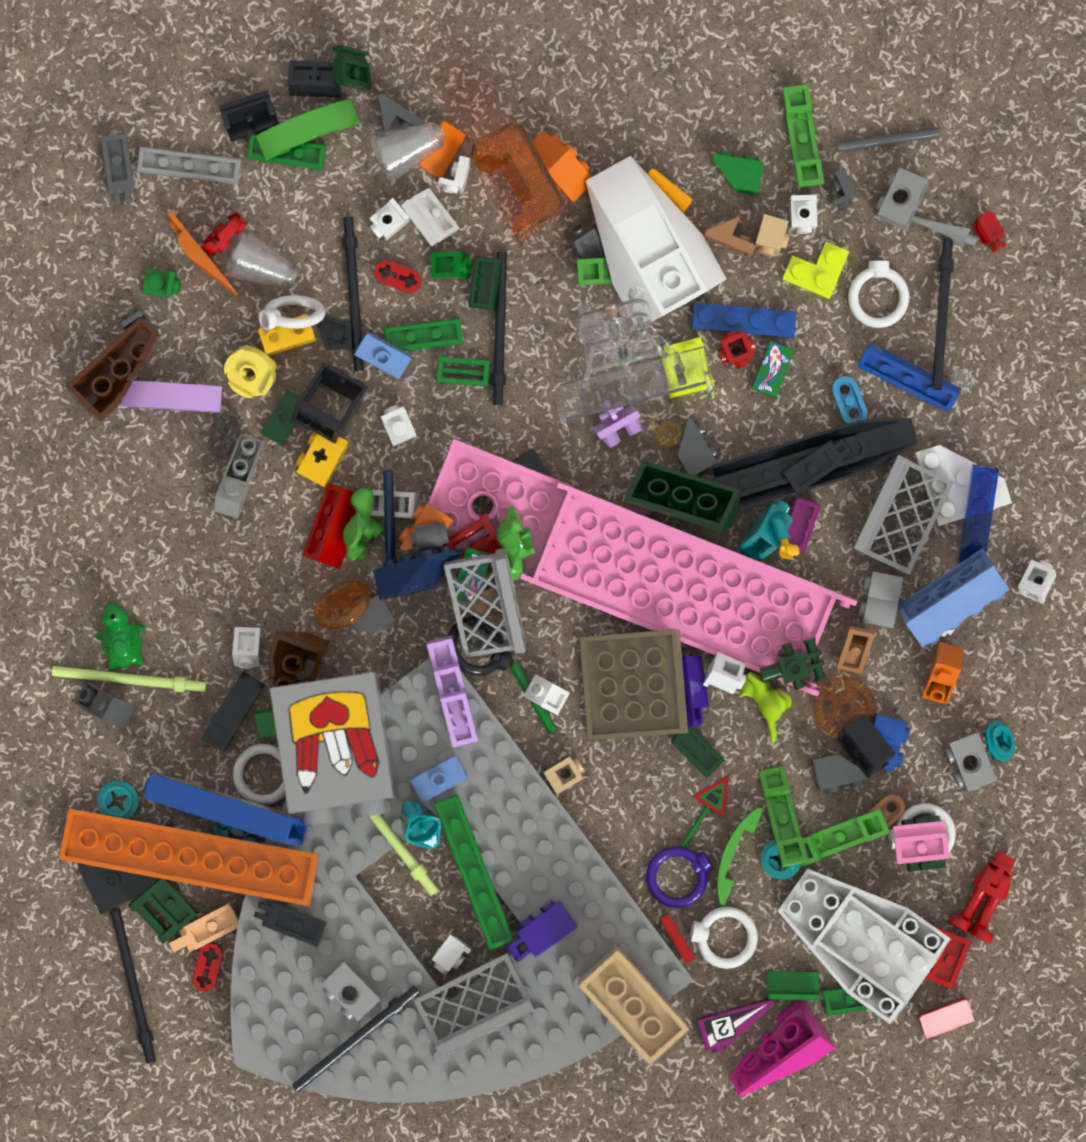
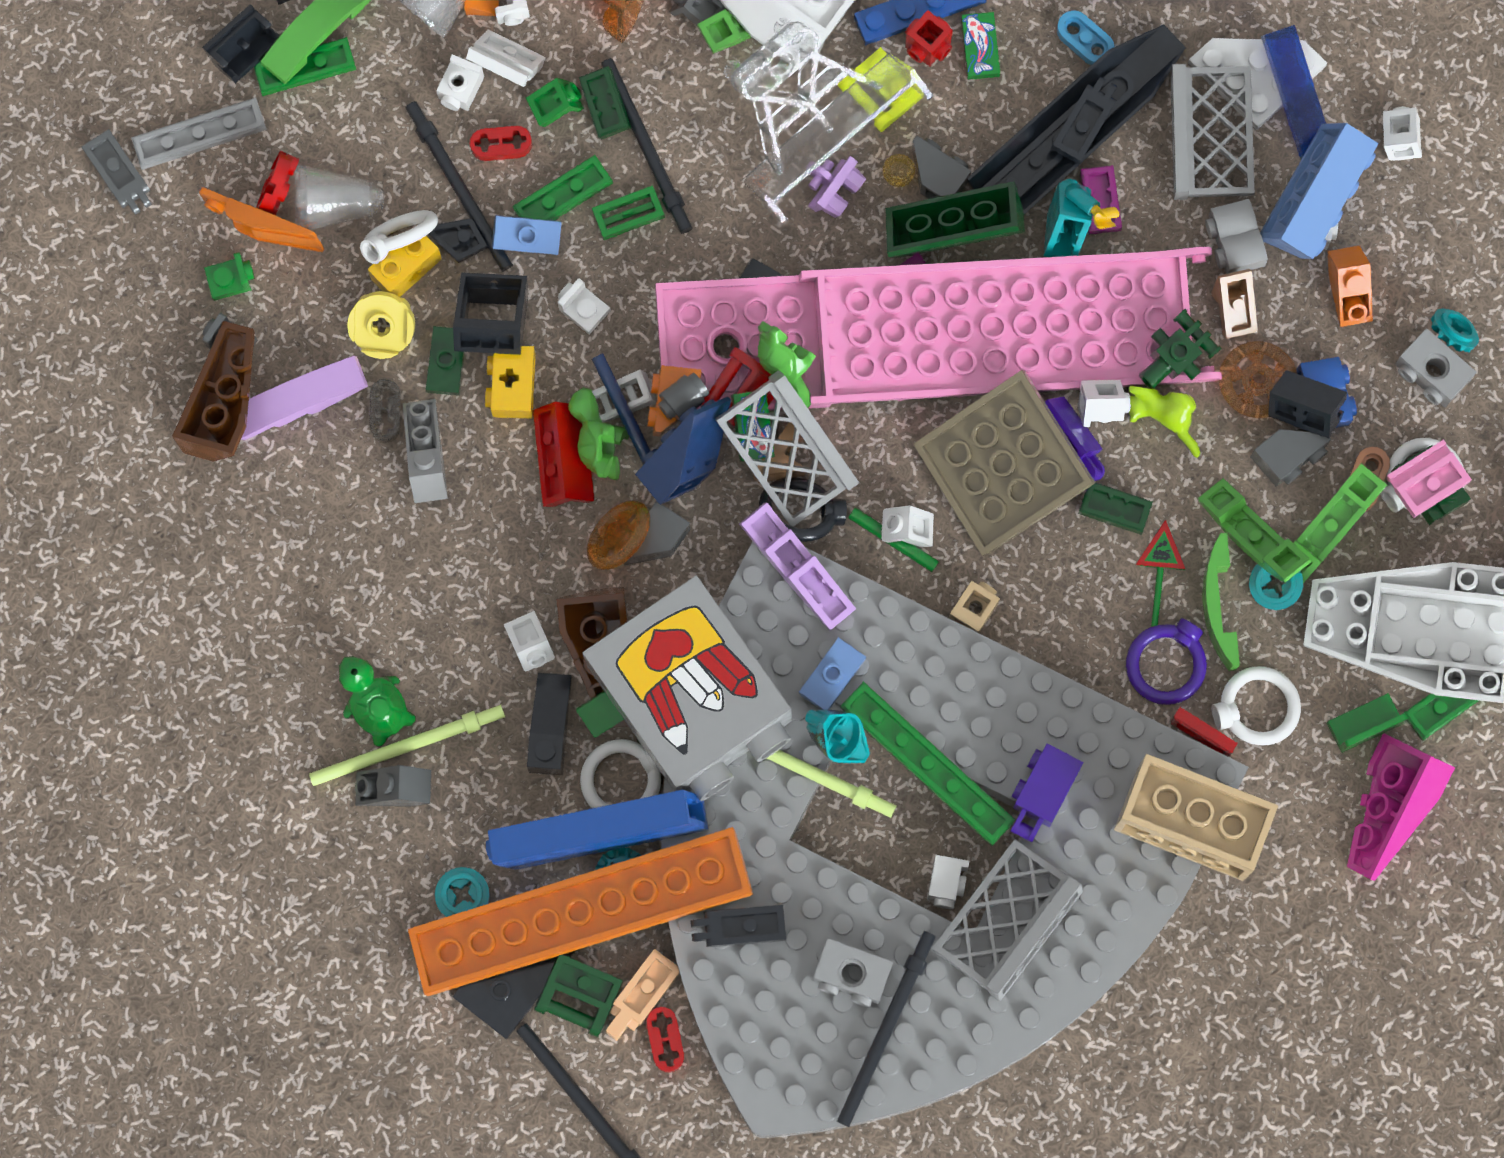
camera: 25 degrees left, 10 degrees down
(727, 1025) = (1315, 806): slope -> none

